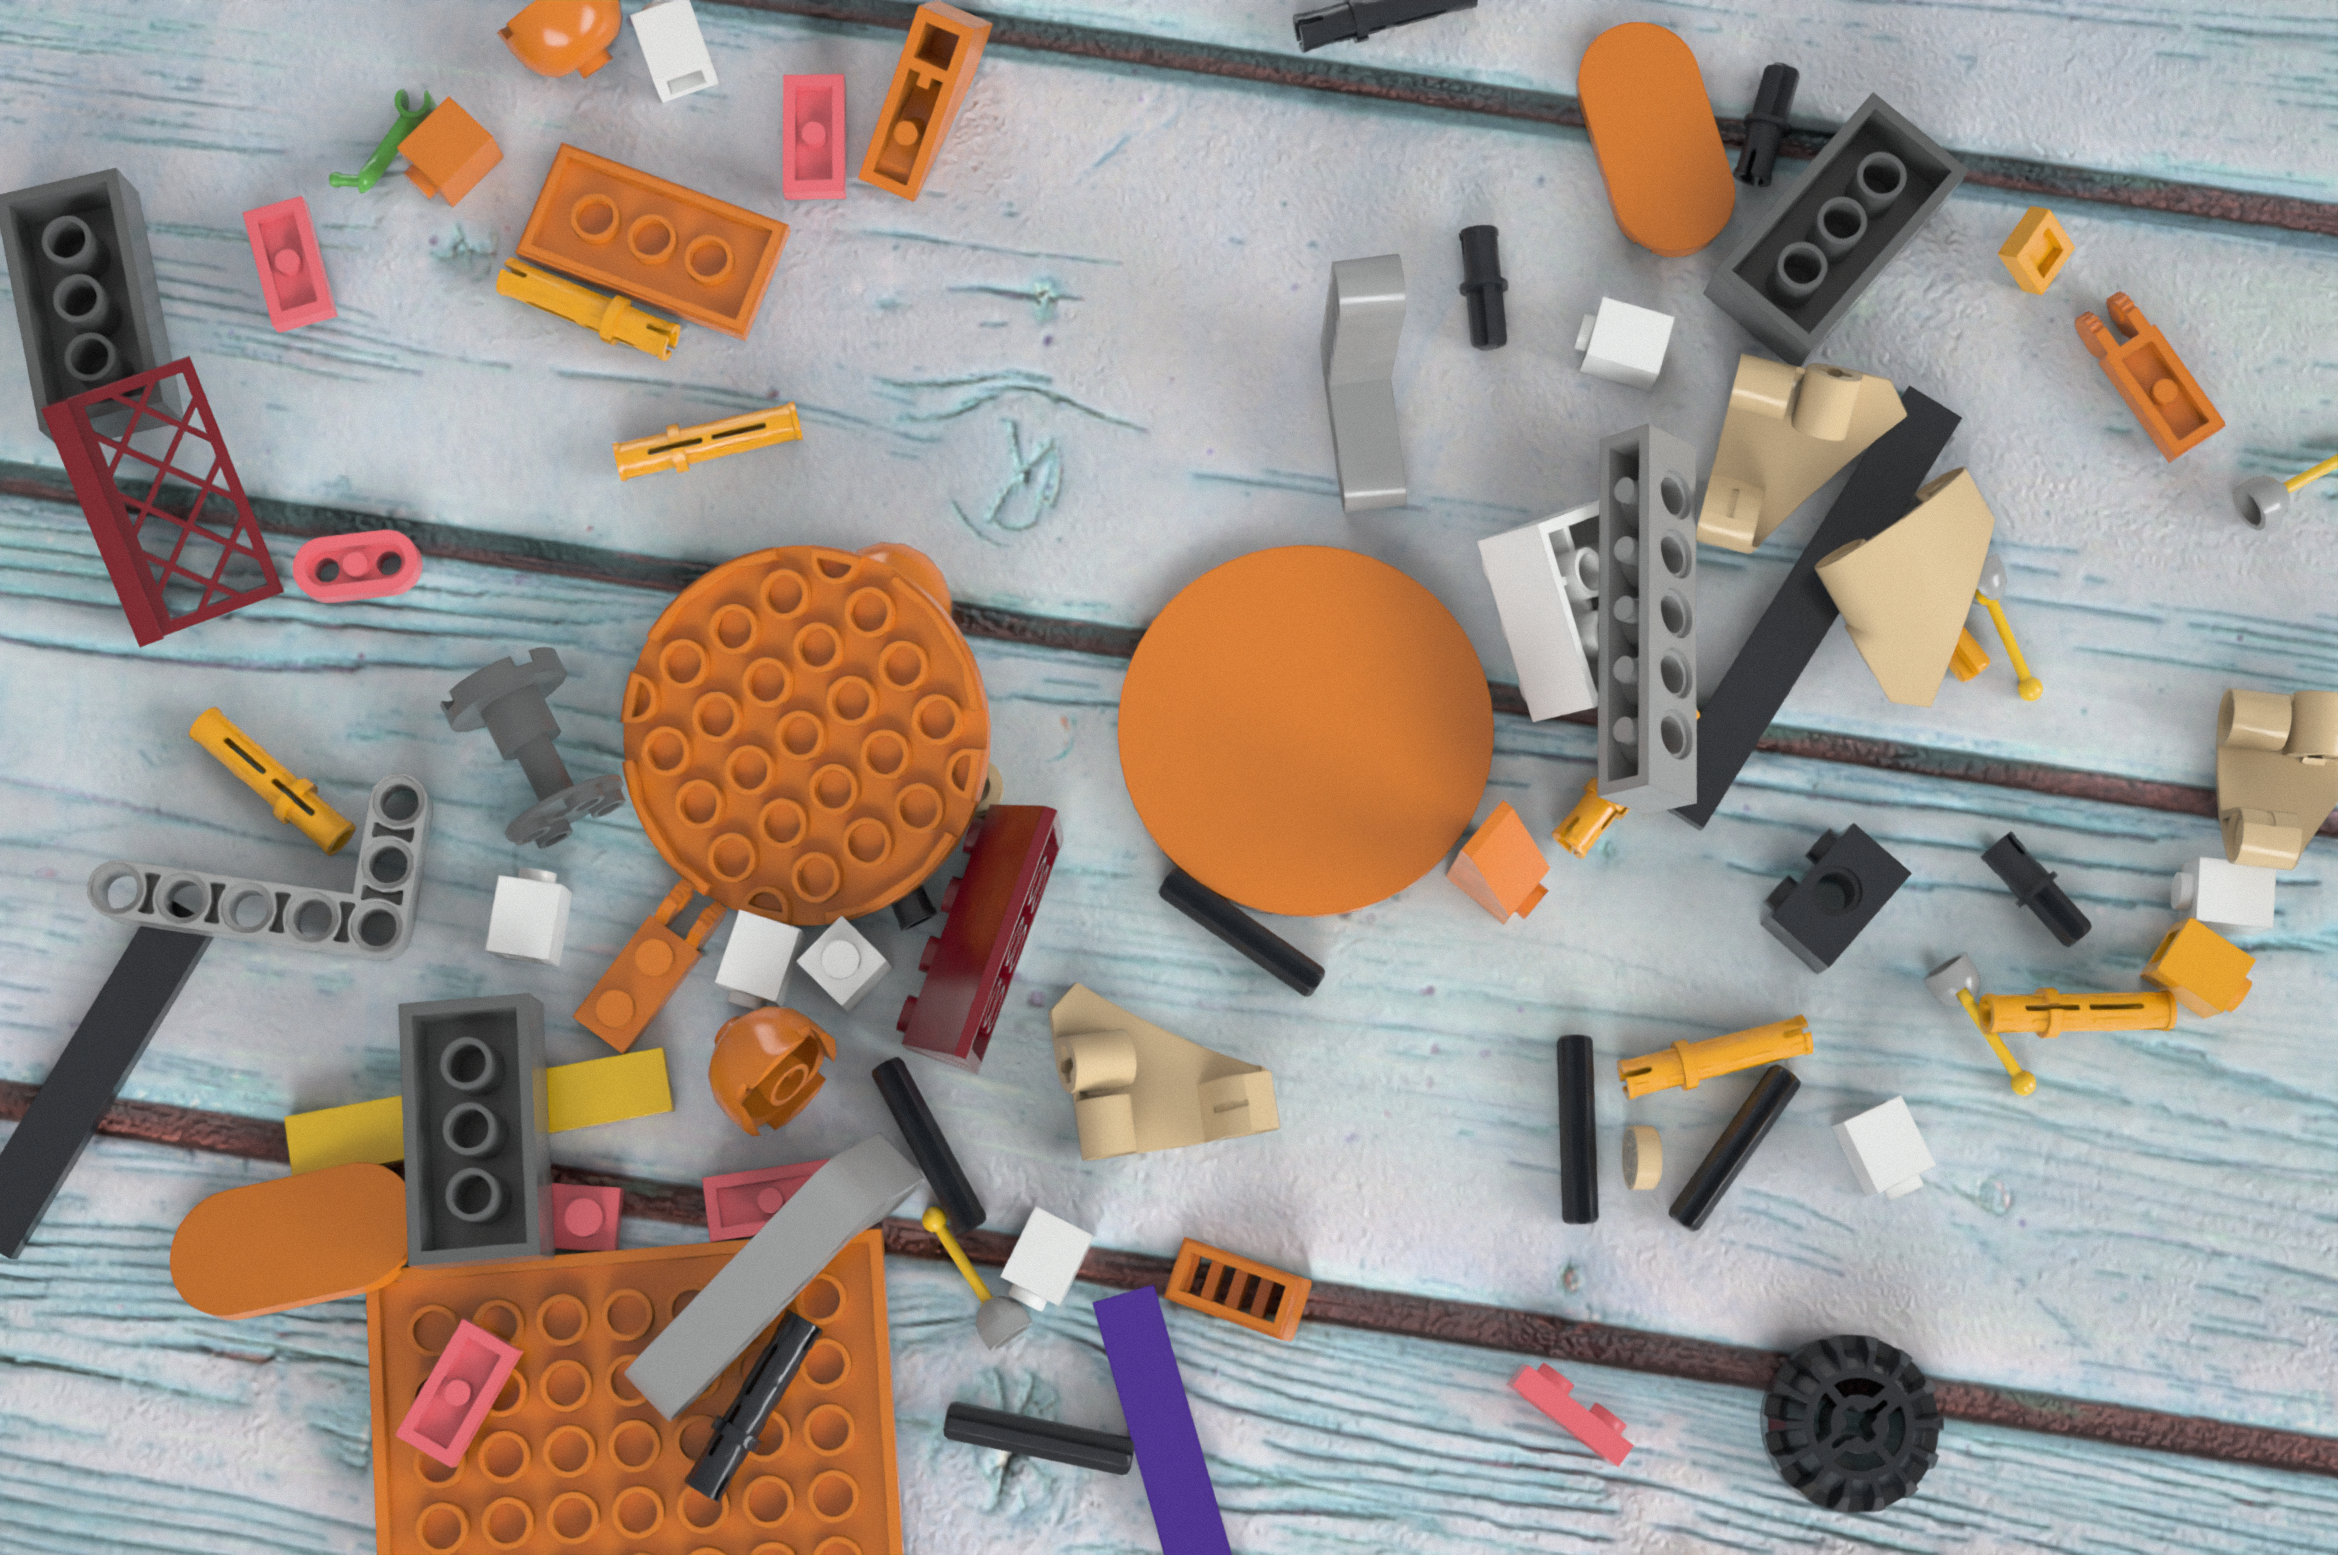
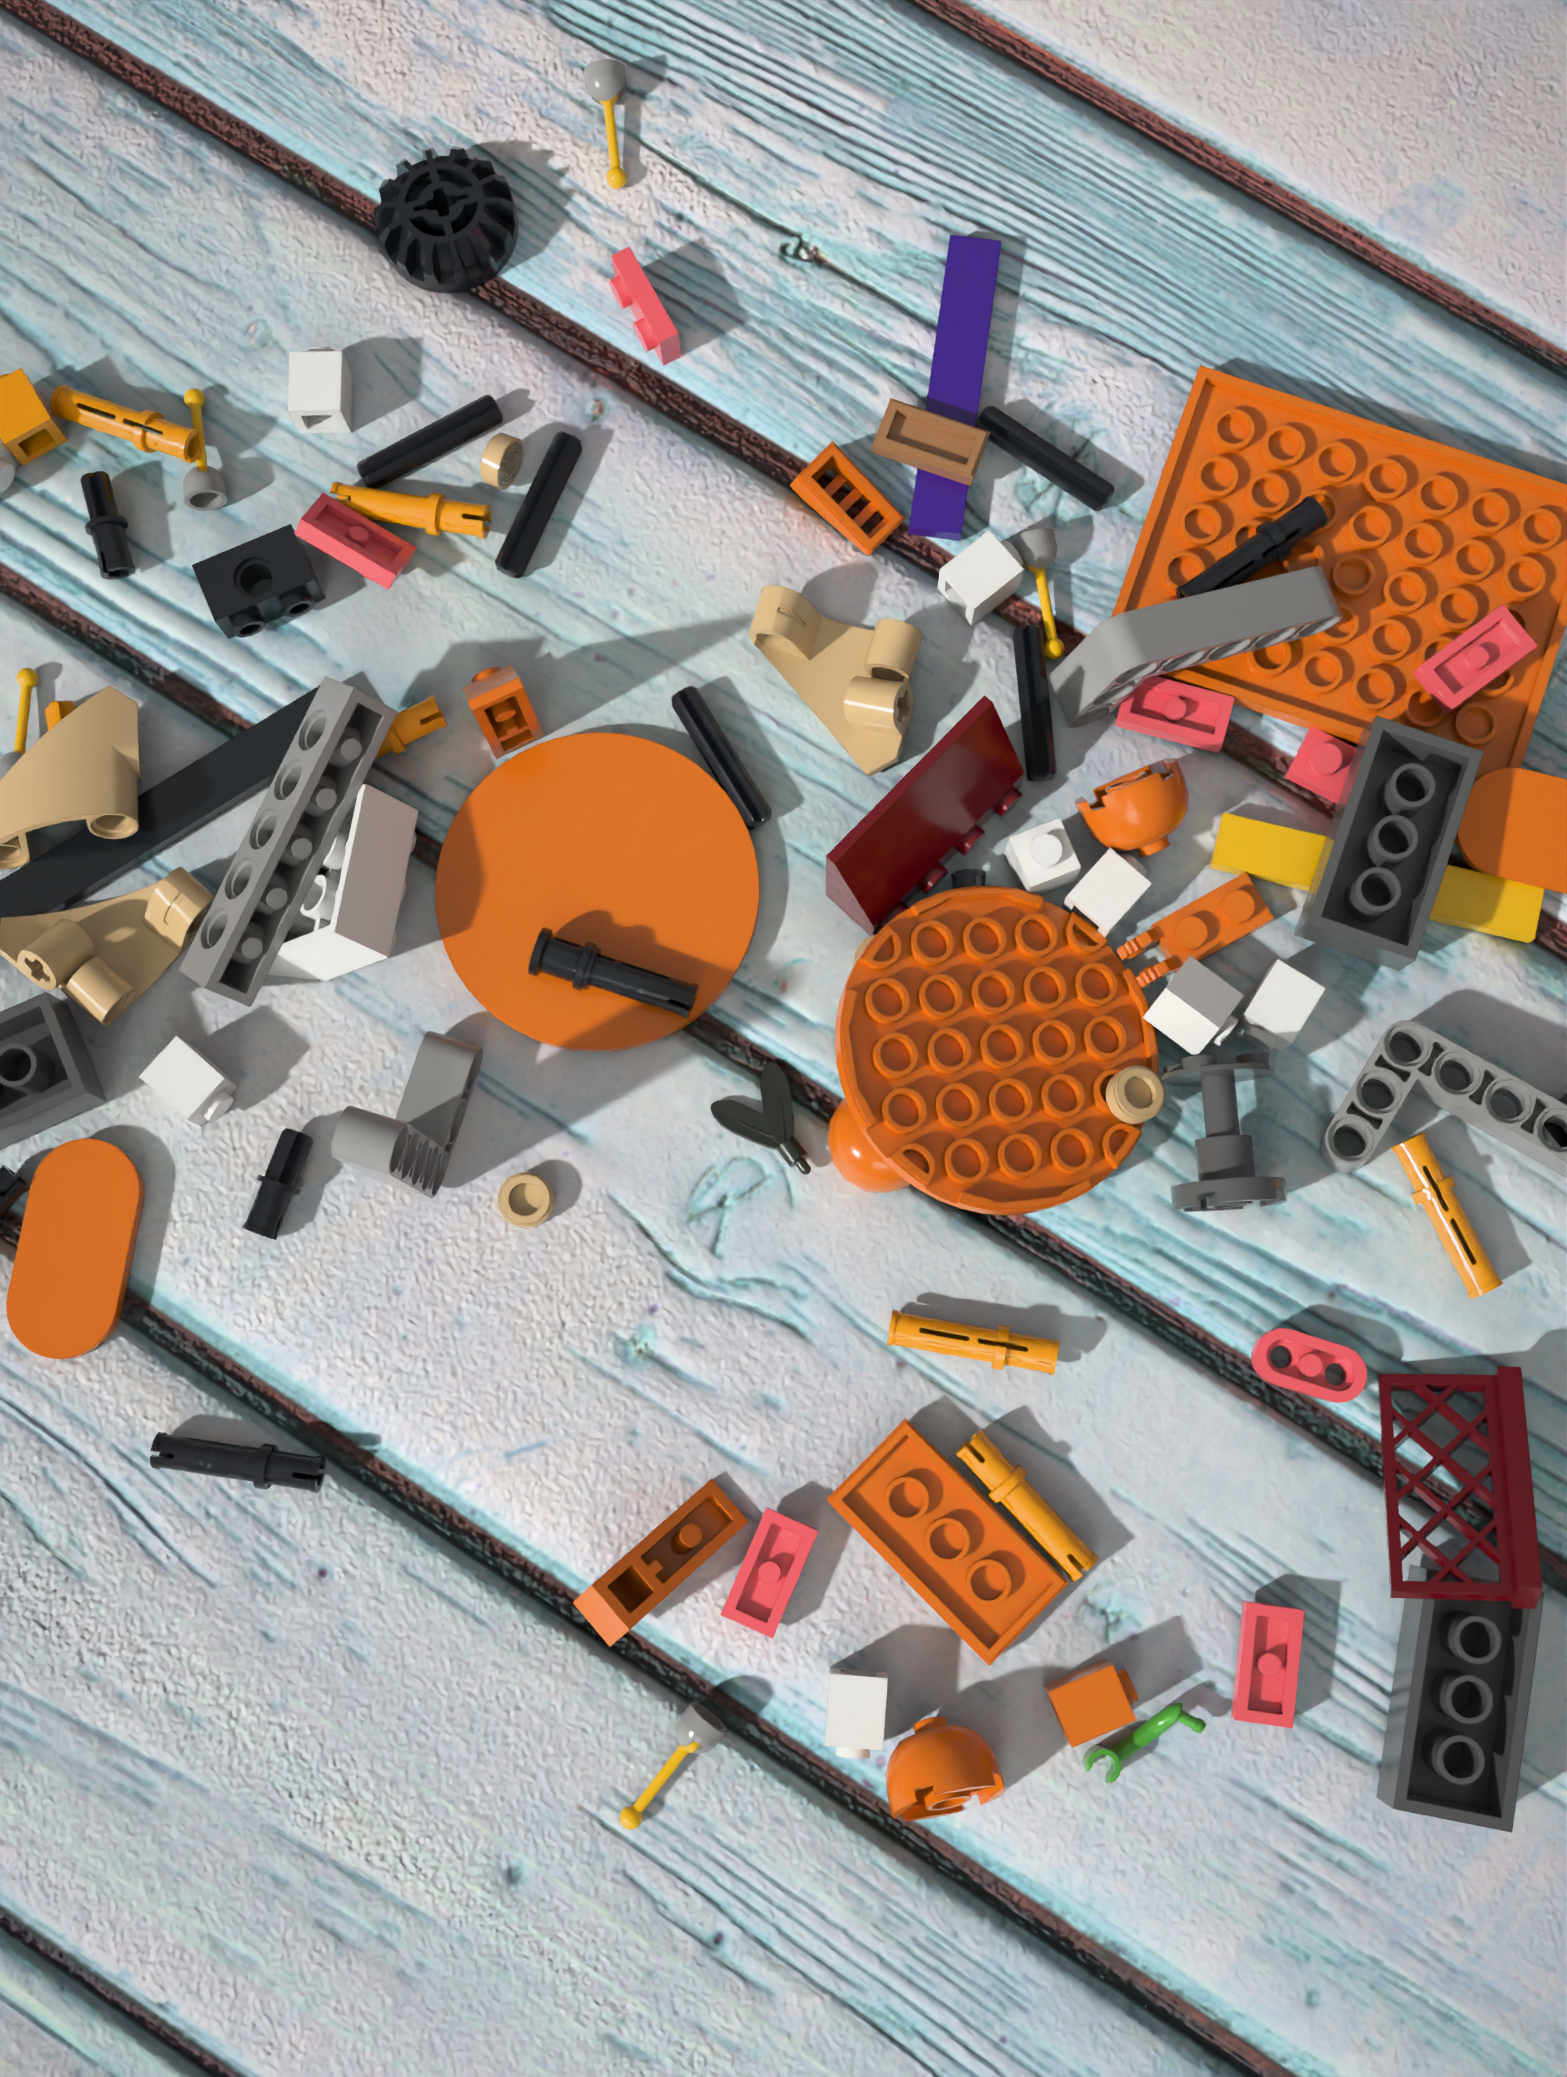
camera: 150 degrees left, 0 degrees up
(617, 875) = (1195, 1008): none -> white brick
(642, 753) = (1135, 1094): none -> tan tile
(1008, 566) = (770, 1130): none -> pearl dark grey piece
(1172, 1392) = (930, 442): none -> medium nougat tile
(1225, 385) = (526, 1200): none -> tan tile
(1271, 634) = (588, 967): none -> black pin
(1752, 988) = (355, 541): none -> coral plate

